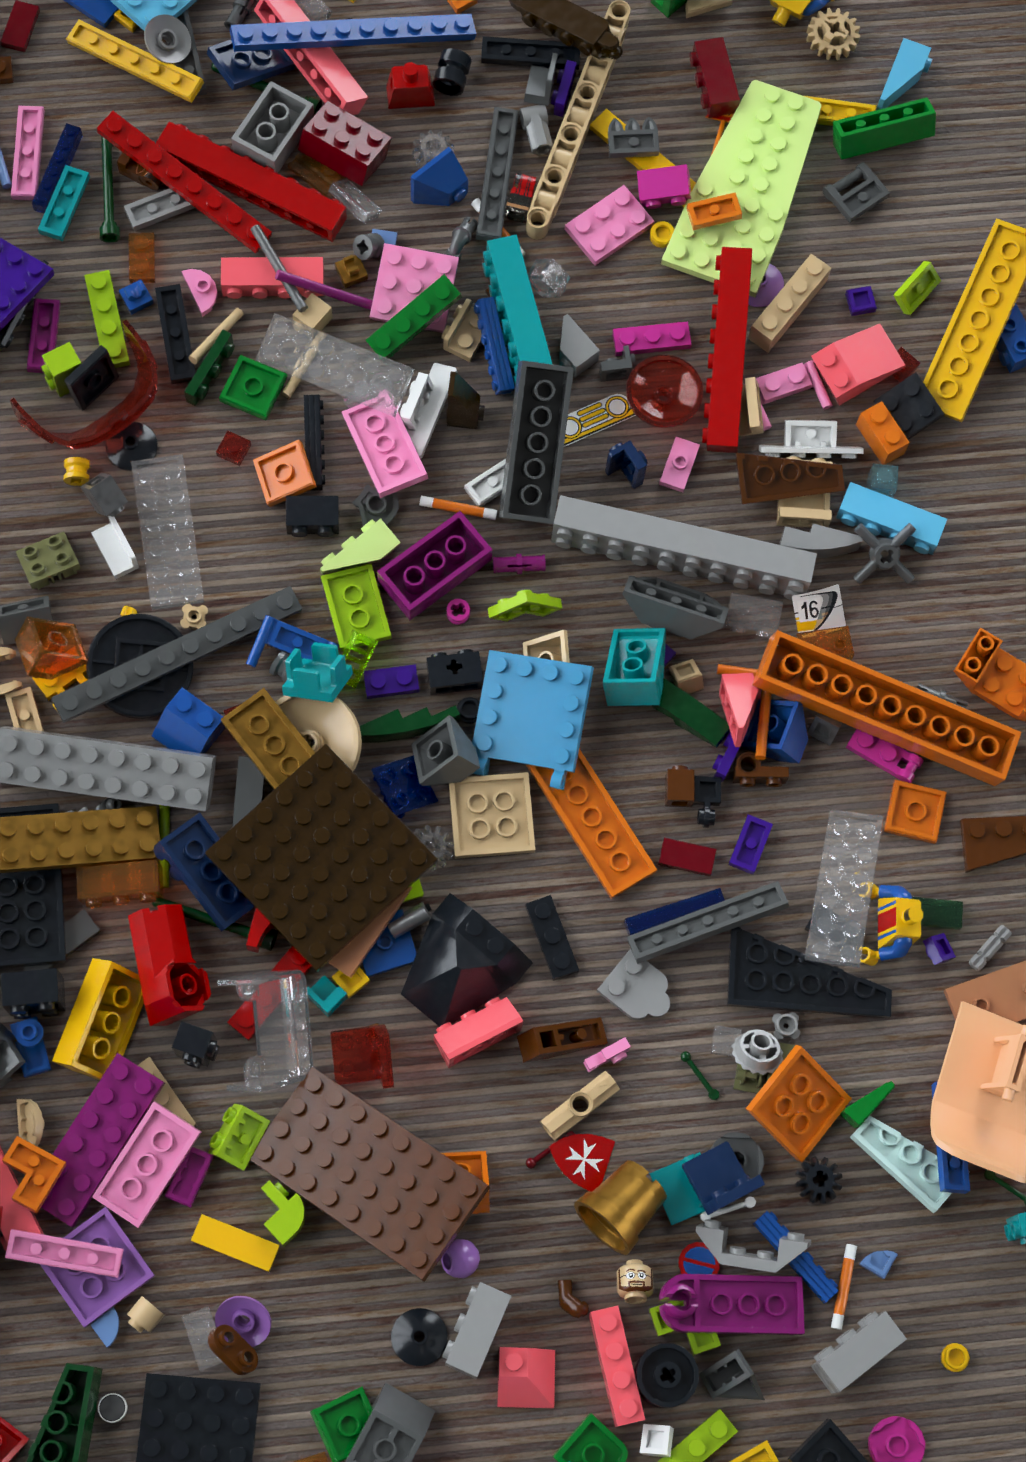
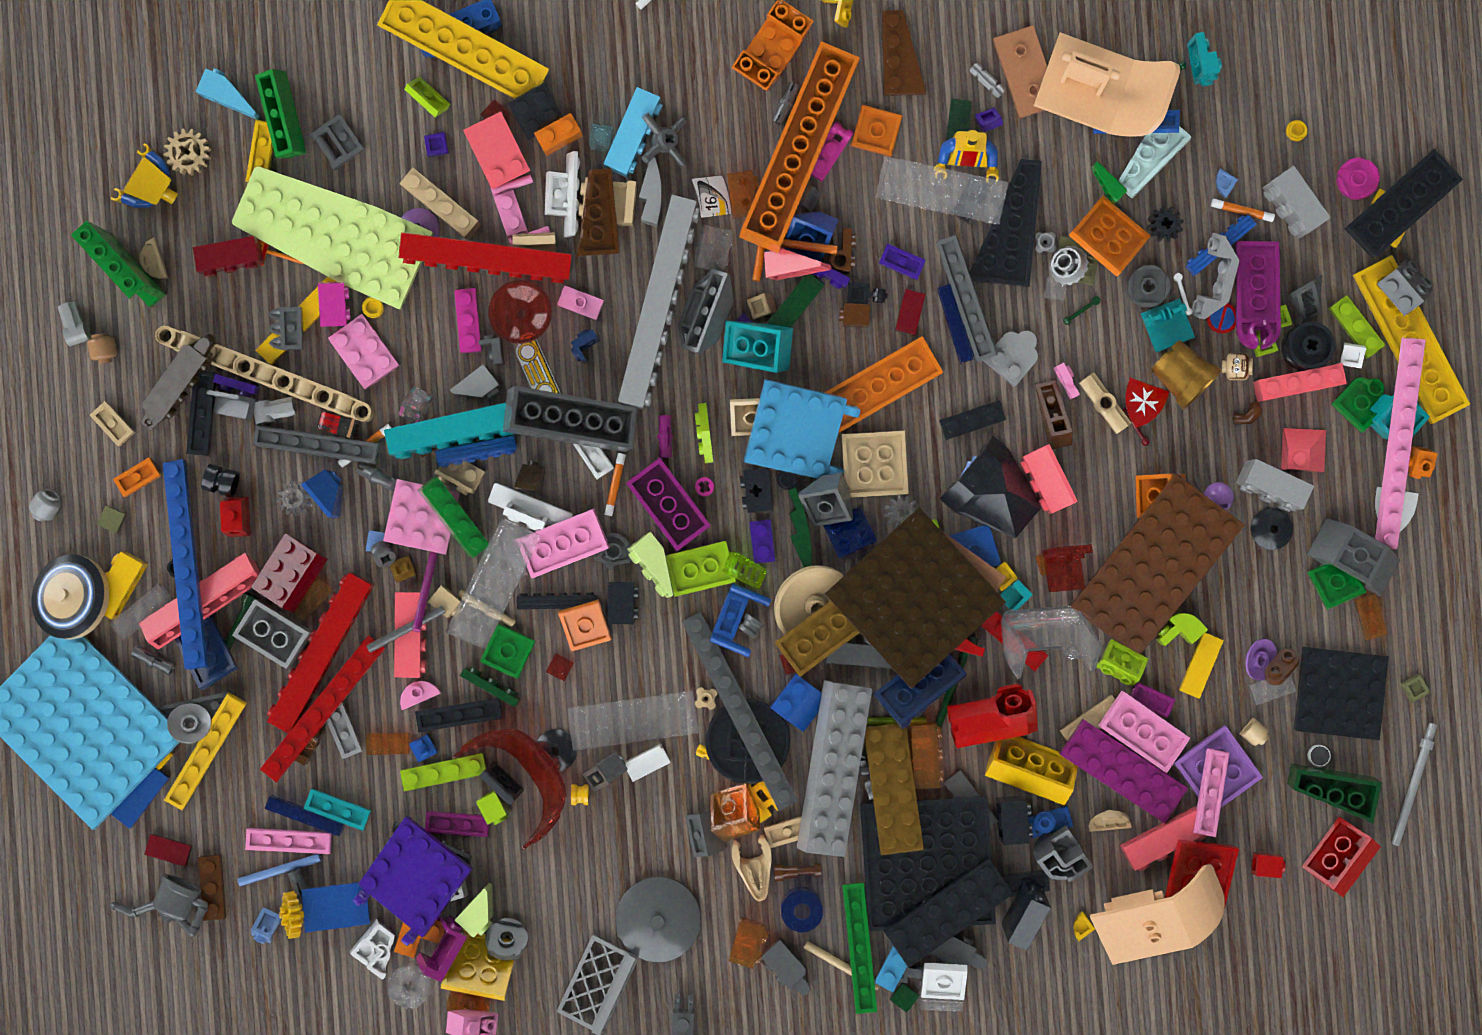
camera: 80 degrees left, 15 degrees up
(40, 1172) = (1149, 812): orange plate -> none
(47, 560) = (655, 816): olive hinge -> none
(107, 1327) = (1261, 760): medium blue tile -> none
(109, 230) = (363, 771): dark green piece -> none
(195, 1045) = (1056, 695): black brick -> none
(226, 325) = (461, 681): tan bar -> none
(316, 678) = (764, 600): teal panel -> none
(355, 200) = (339, 565): clear plate -> none
(412, 918) = (957, 526): flat silver piece -> none
(714, 211) = (360, 262): orange plate -> none
(719, 1178) = (1168, 298): dark blue bracket -> none

